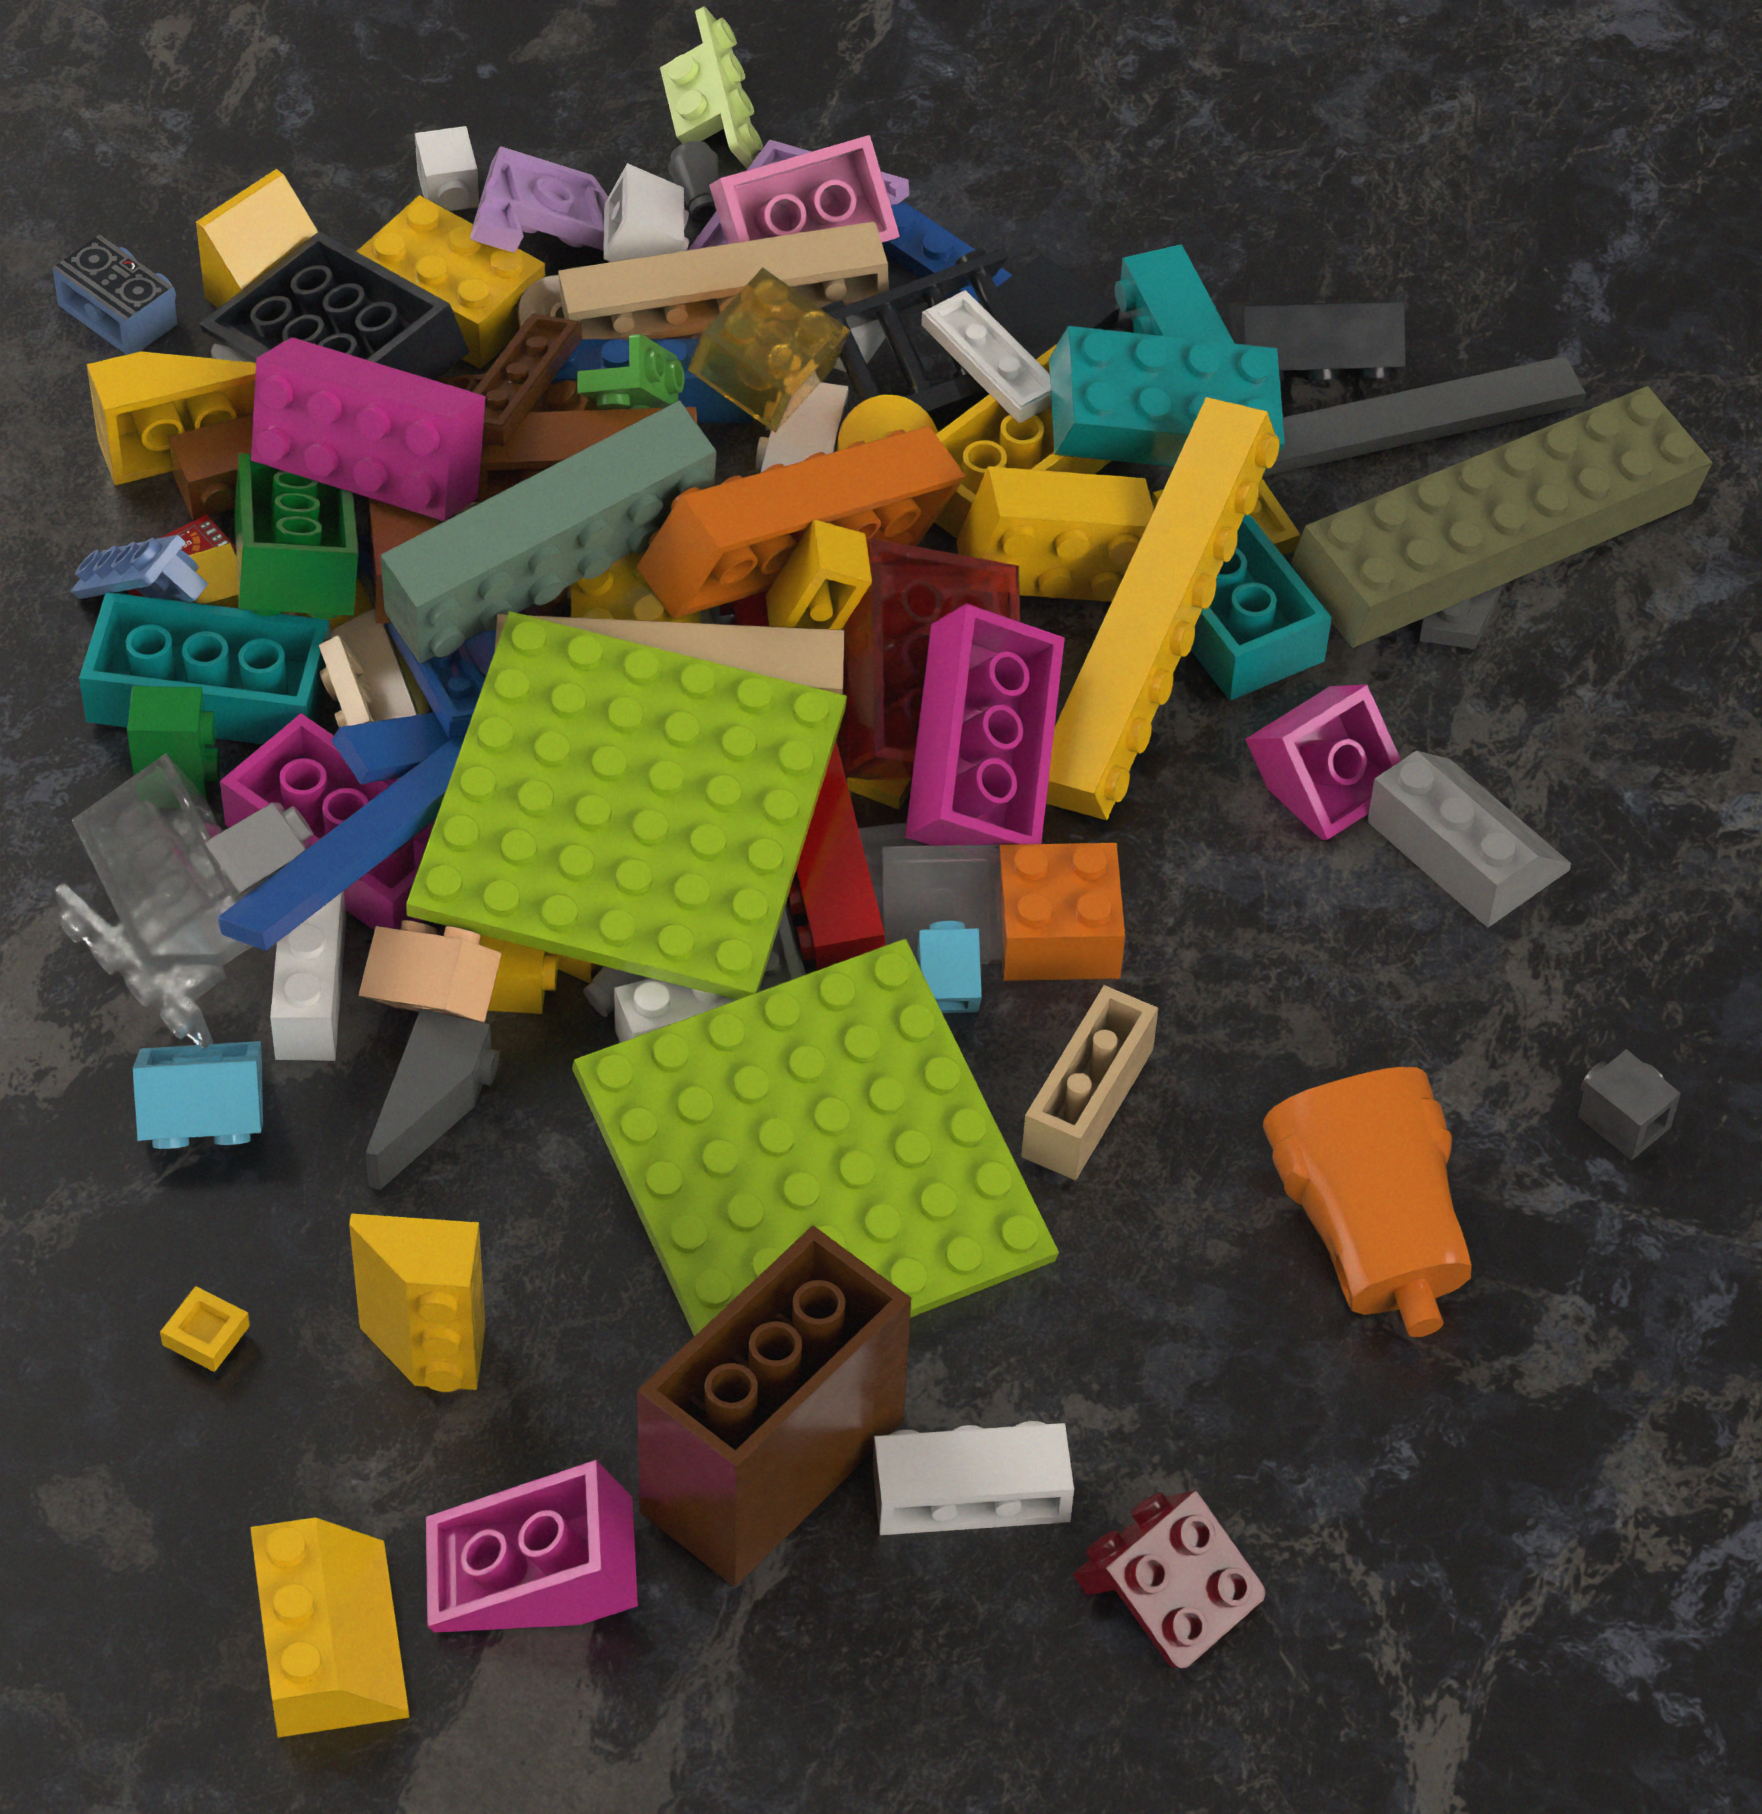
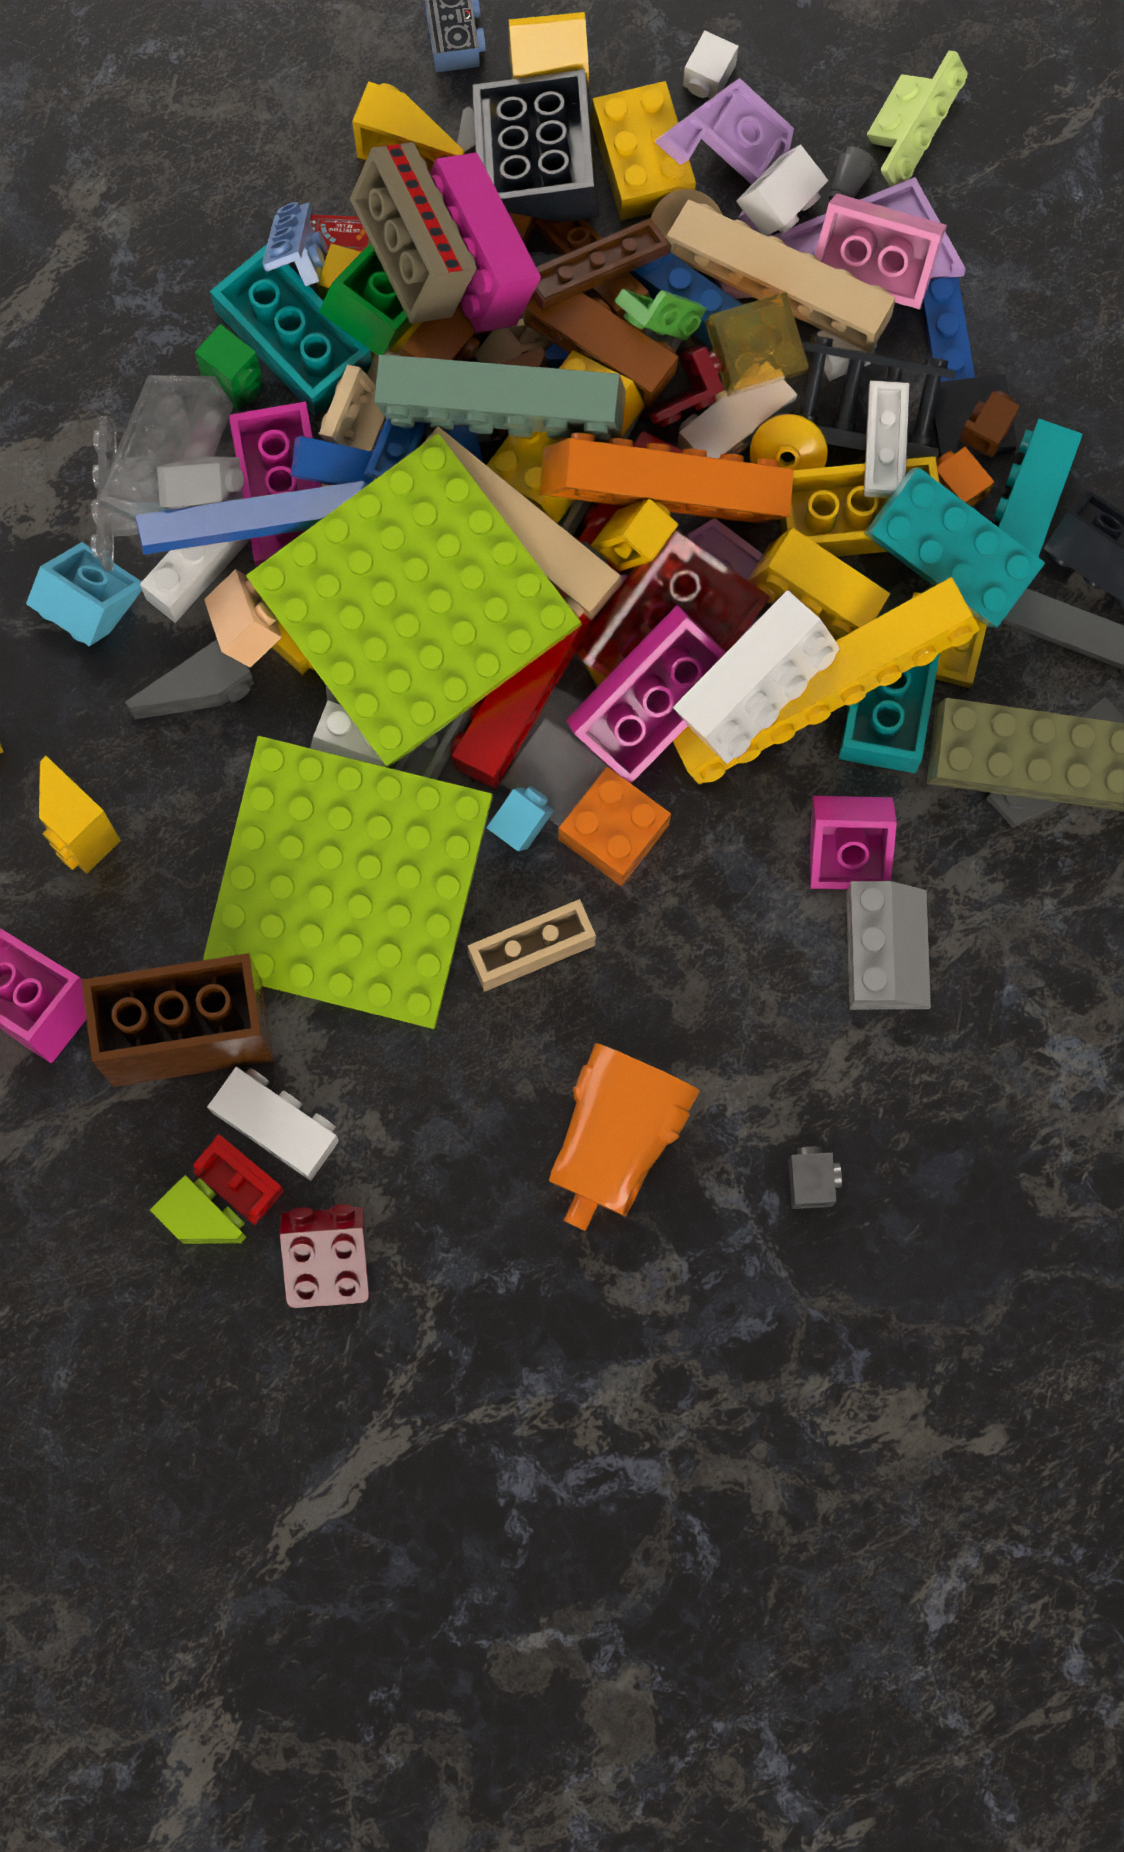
camera: 40 degrees right, 25 degrees up
(292, 448) = (412, 232): none -> dark tan brick
(733, 425) = (702, 373): none -> dark red bracket
(981, 1643) = (194, 1217): none -> lime slope
(987, 1569) = (237, 1179): none -> red hinge
(1077, 292) = (990, 423): none -> reddish brown brick
(1096, 622) = (758, 677): none -> white brick

